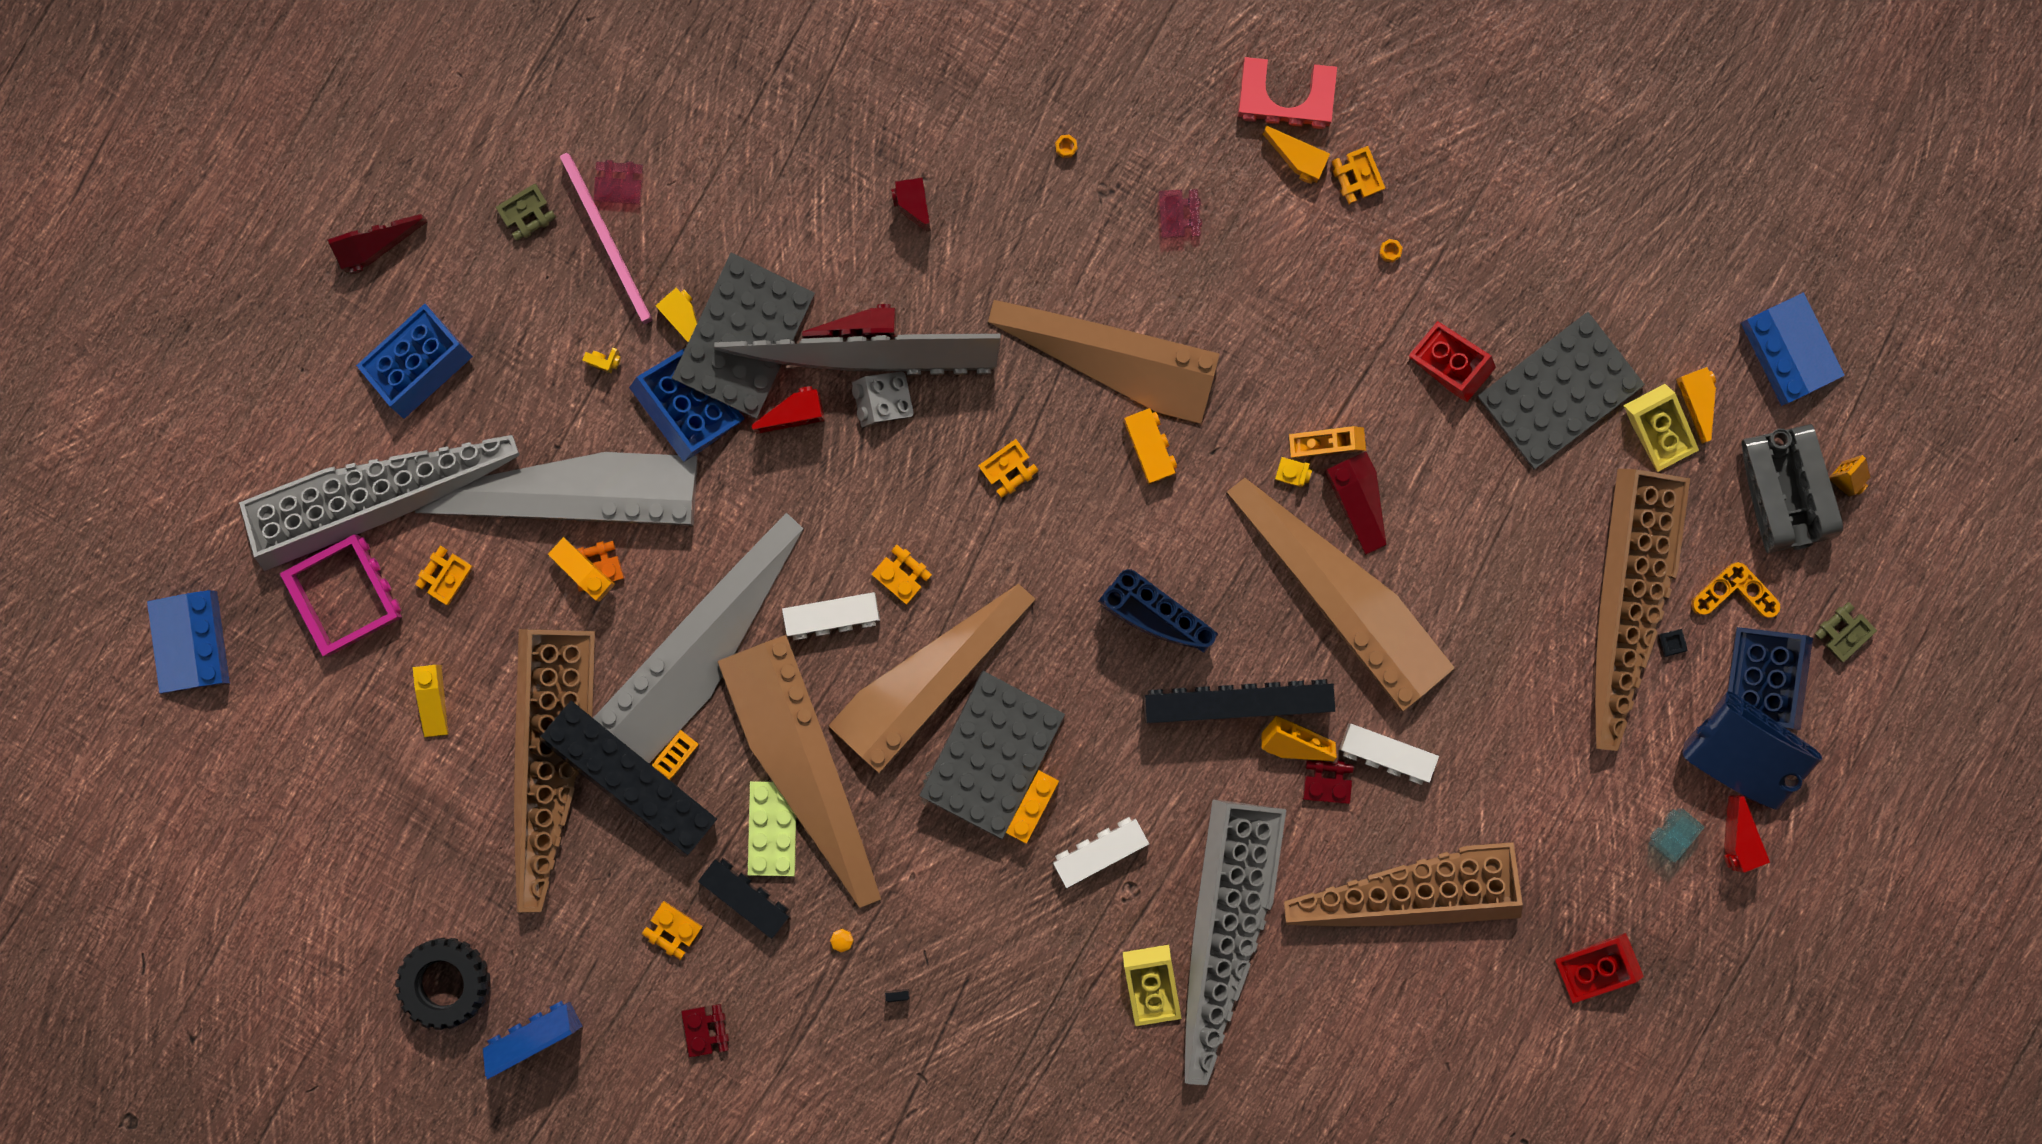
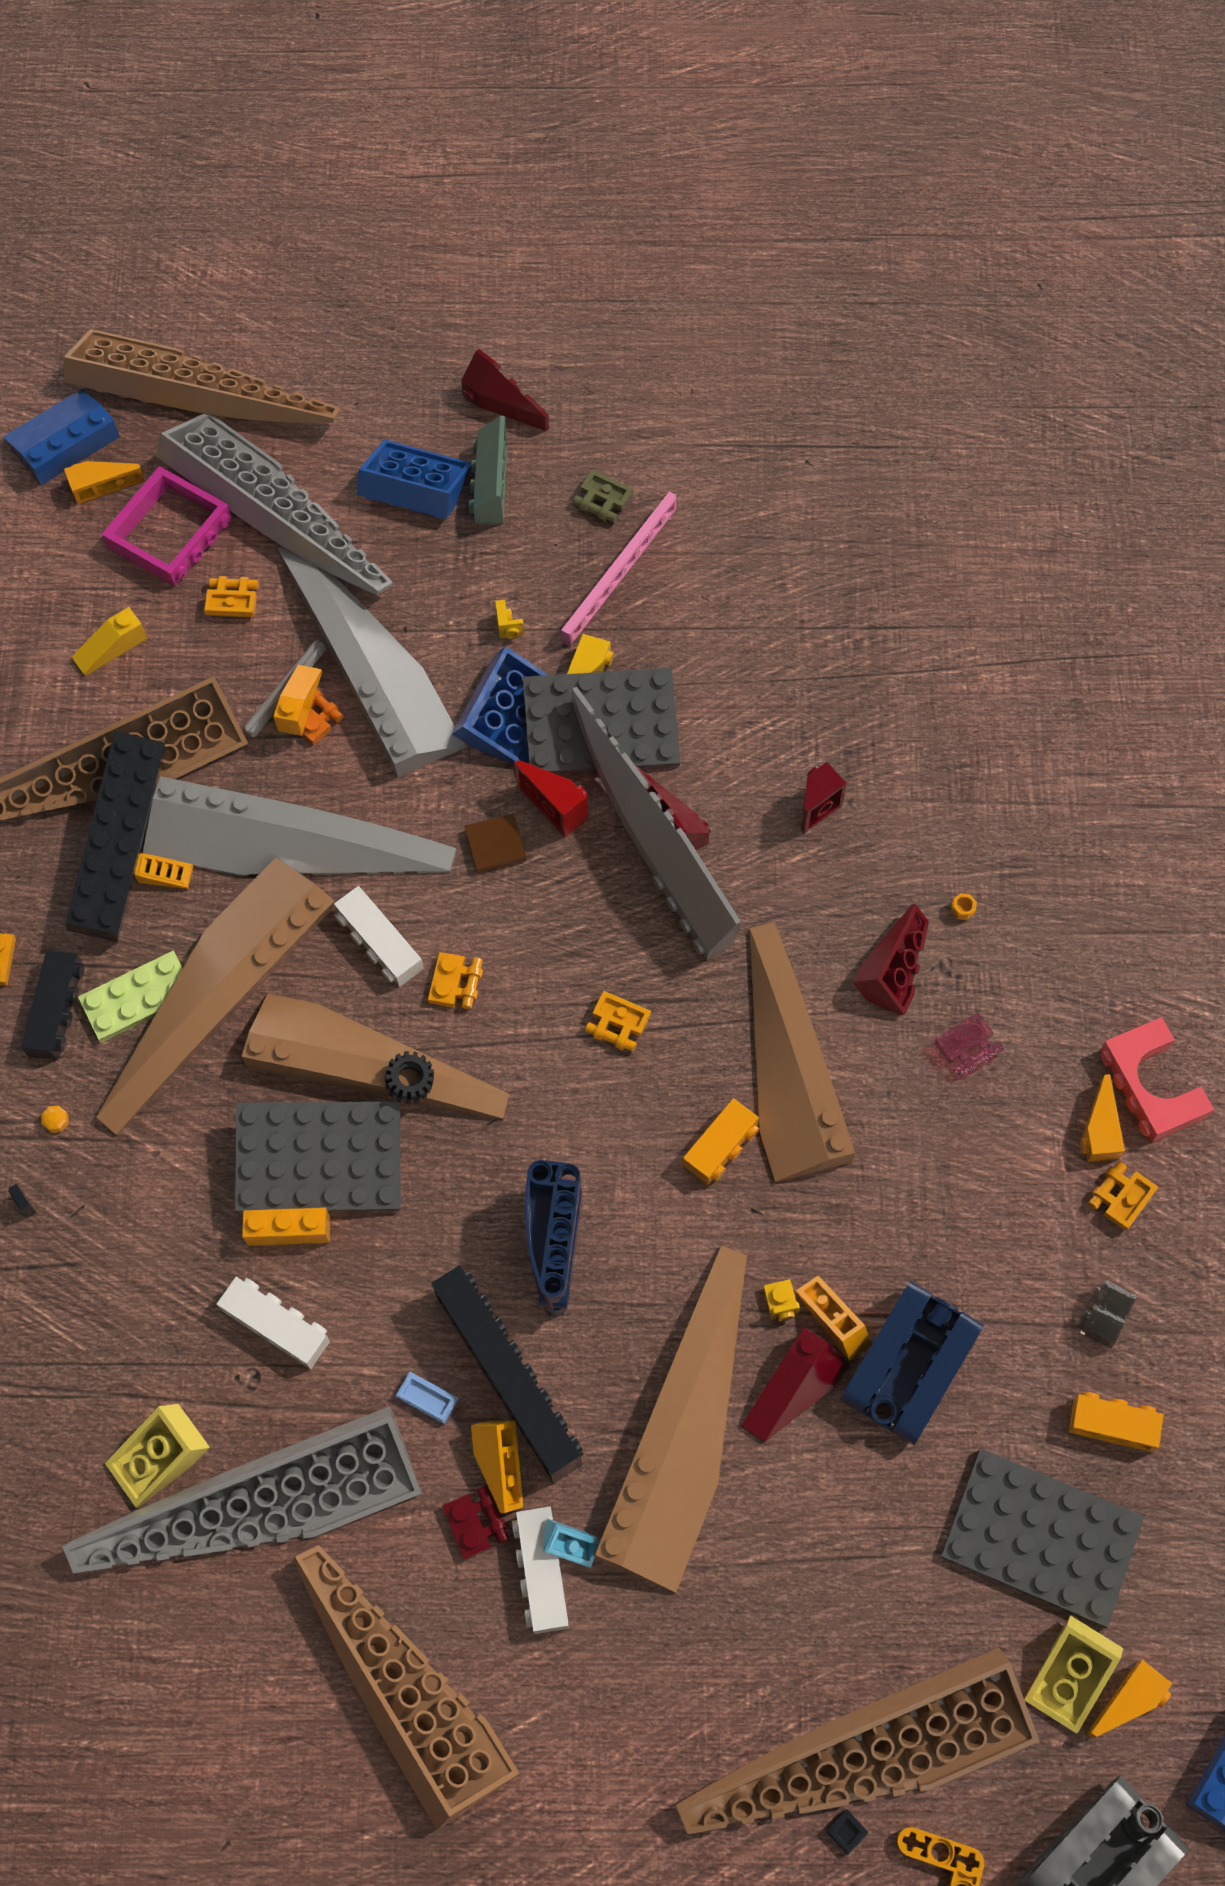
camera: 60 degrees right, 20 degrees down
(192, 510) = (174, 380): none -> medium nougat wedge
(256, 634) = (98, 479): none -> light orange slope
(450, 295) = (489, 473): none -> sand green slope
(559, 576) = (268, 708): none -> light grey axle
(618, 190) = (670, 558): clear pink plate -> none
(800, 479) = (495, 843): none -> reddish brown tile
(882, 398) = (617, 872): light grey bracket -> none
(966, 667) = (409, 1092): none -> black tyre
(1085, 235) = (890, 968): none -> dark red wedge
(1218, 769) = (427, 1398): none -> light blue tile
(1382, 723) = (570, 1543): none -> medium azure slope
(1390, 250) = (1069, 1271): light orange tile -> none
(1393, 405) = (912, 1361): none -> dark blue panel
(1436, 243) = (1107, 1313): none -> clear smoke brick
(1453, 361) = (998, 1401): red slope -> none
(1514, 288) = (1116, 1422): none -> light orange brick

